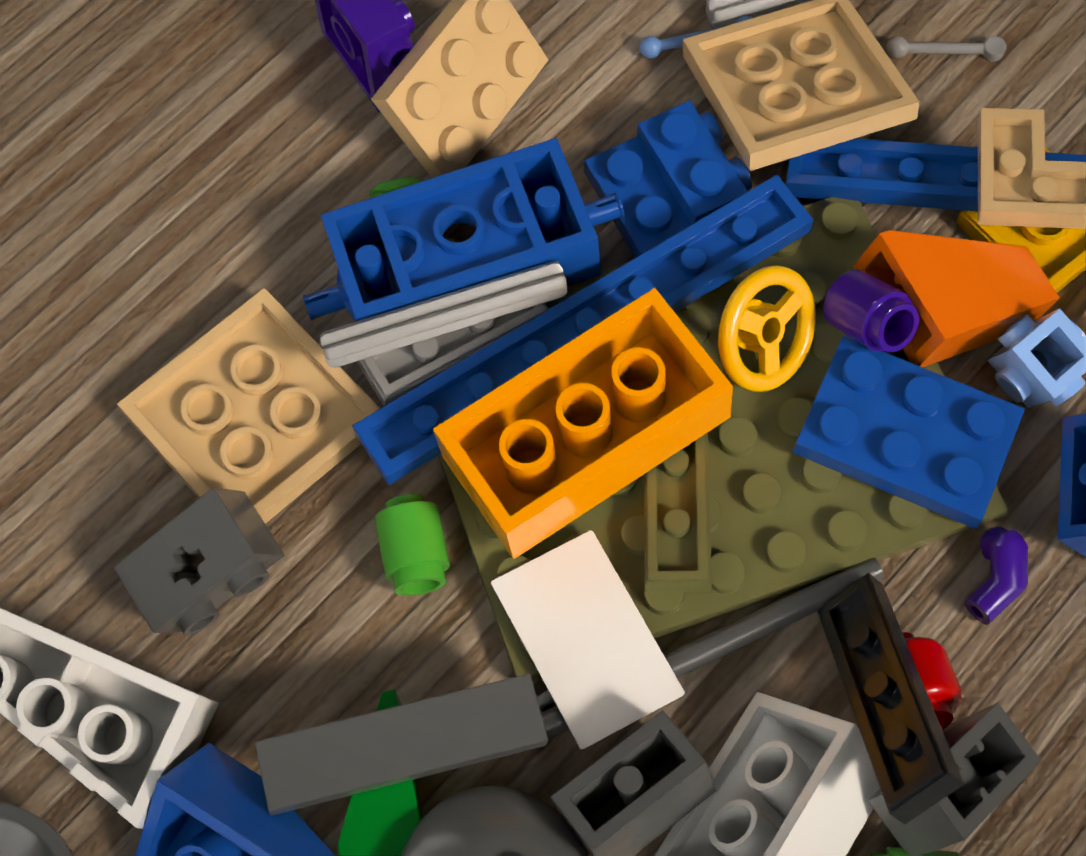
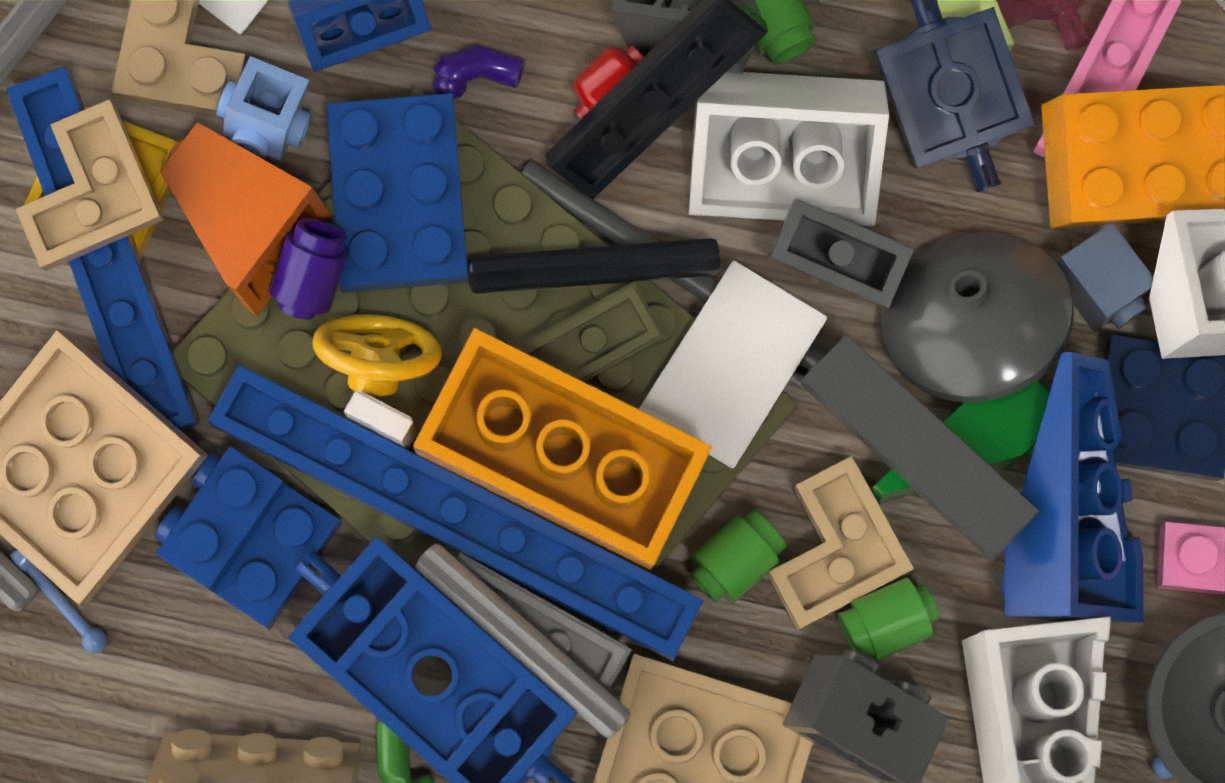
camera: 125 degrees left, 10 degrees up
(275, 643) = (889, 619): none -> bright green brick
(352, 652) = (856, 551): none -> tan plate
(703, 301) = (381, 419): none -> white tile
(744, 562) = (594, 265): none -> black axle

